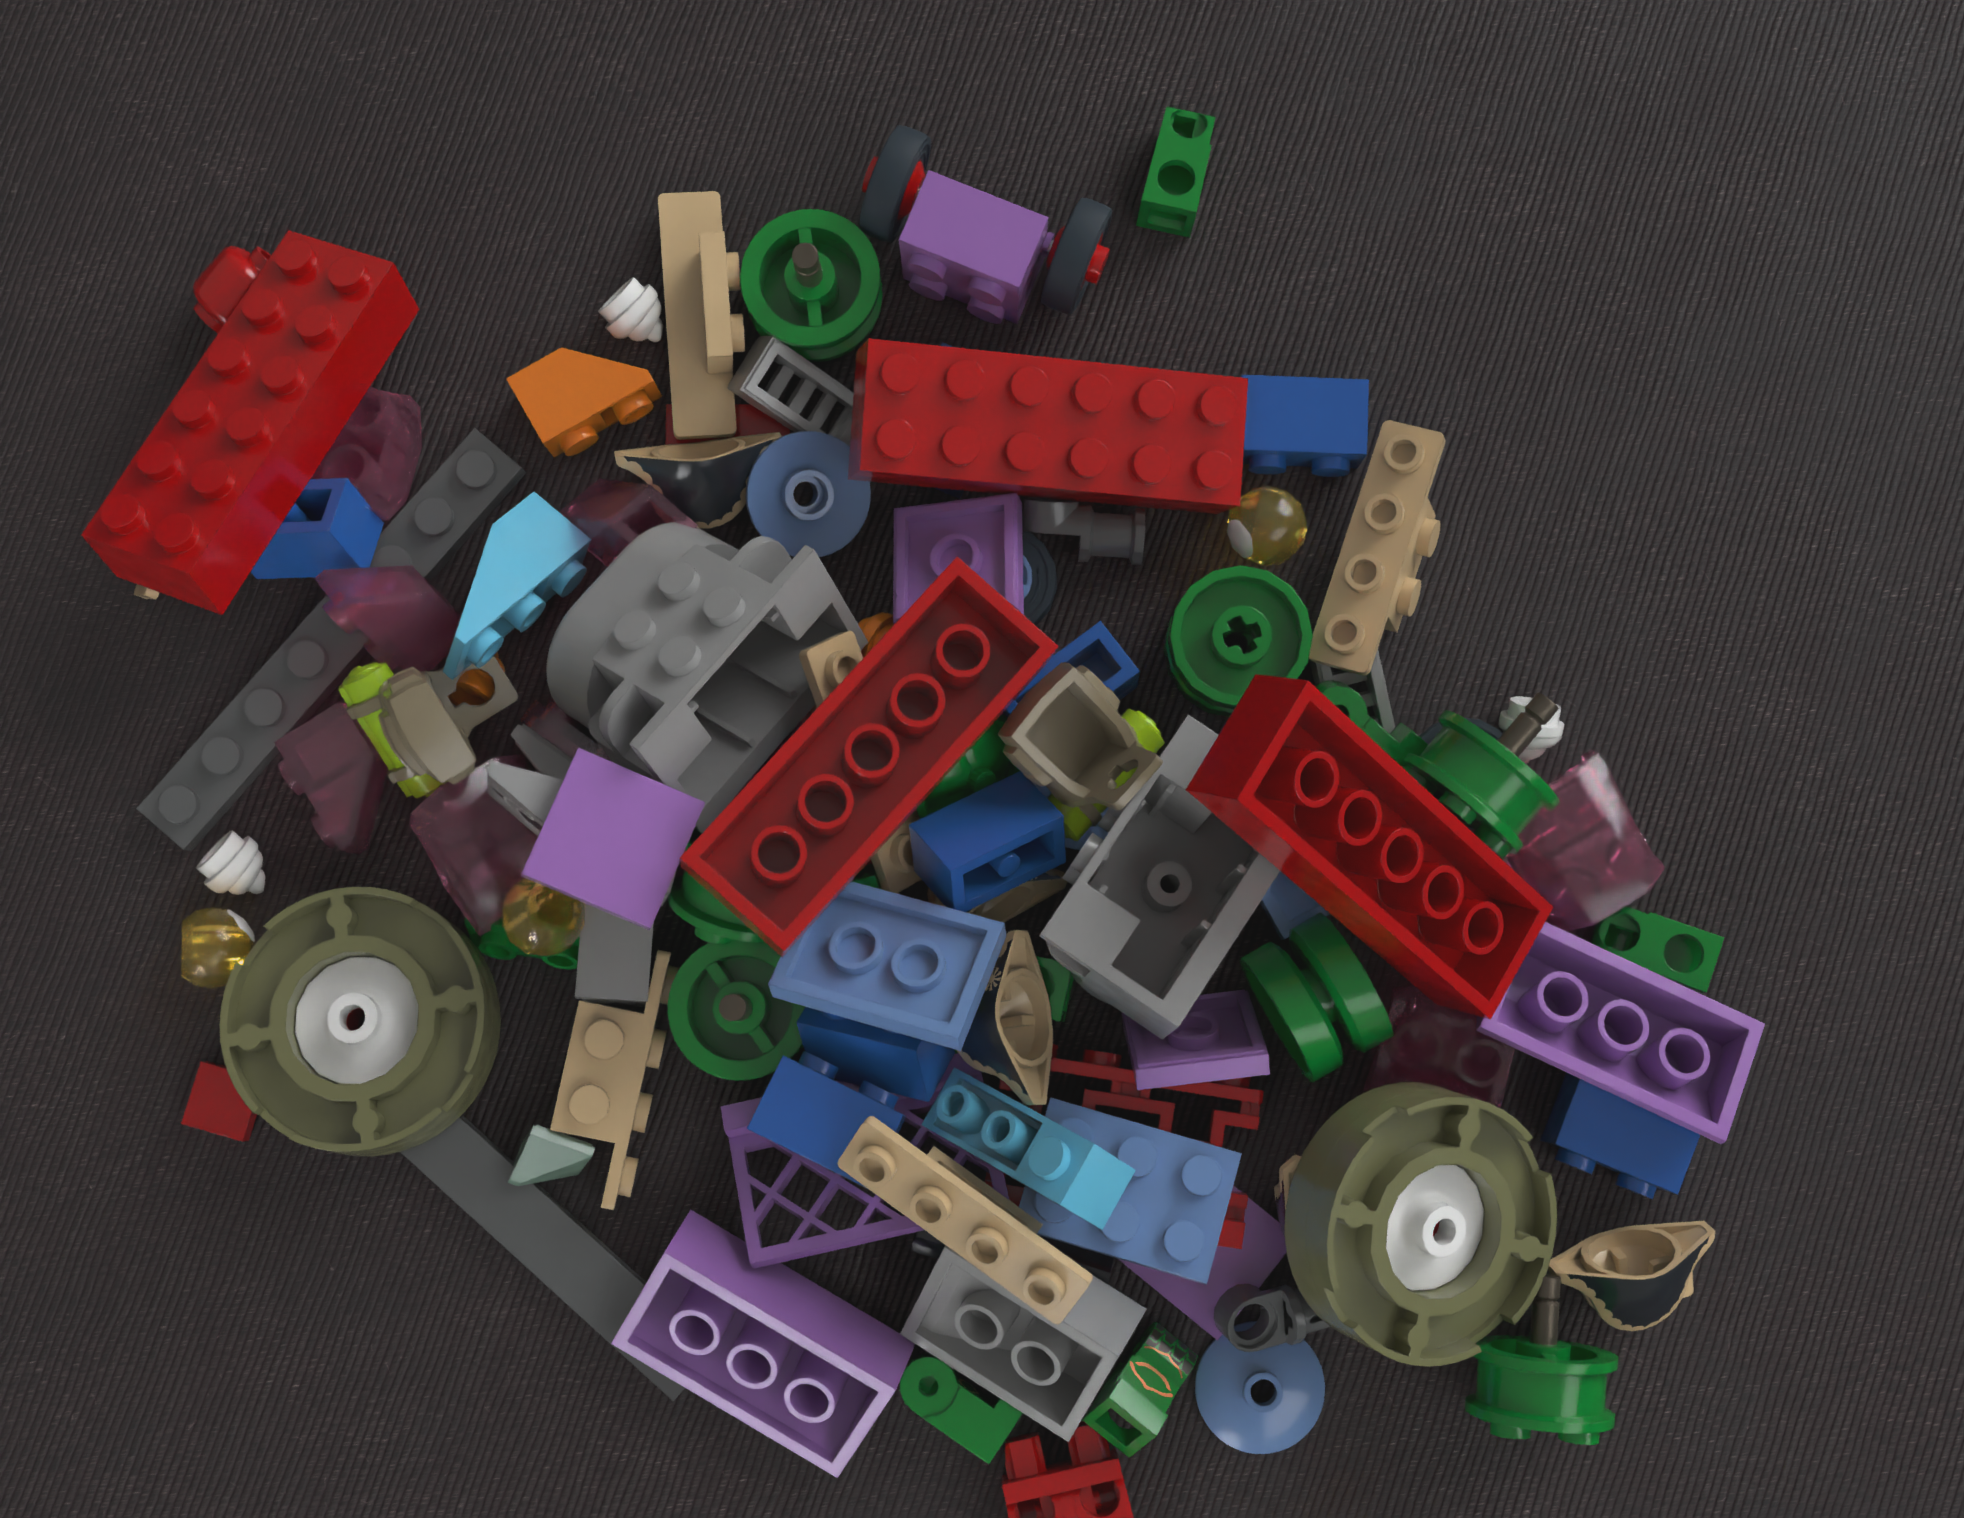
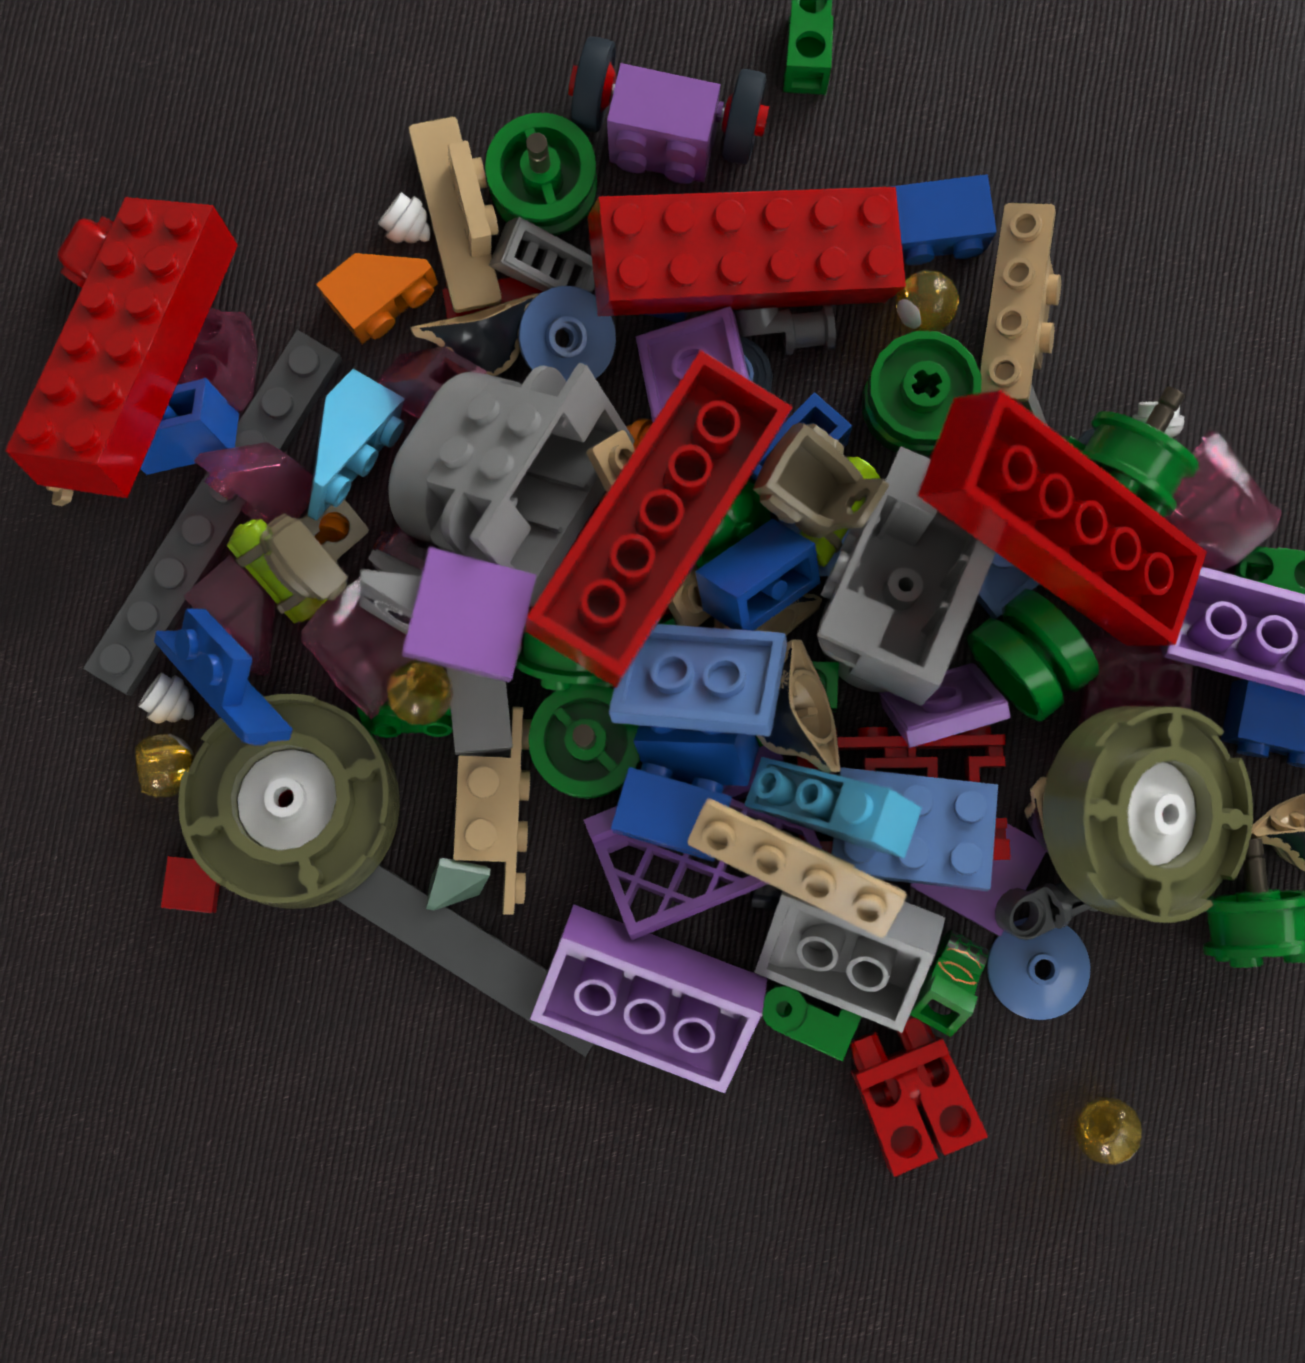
camera: 10 degrees left, 0 degrees up
(300, 857) = (220, 674): none -> blue bracket

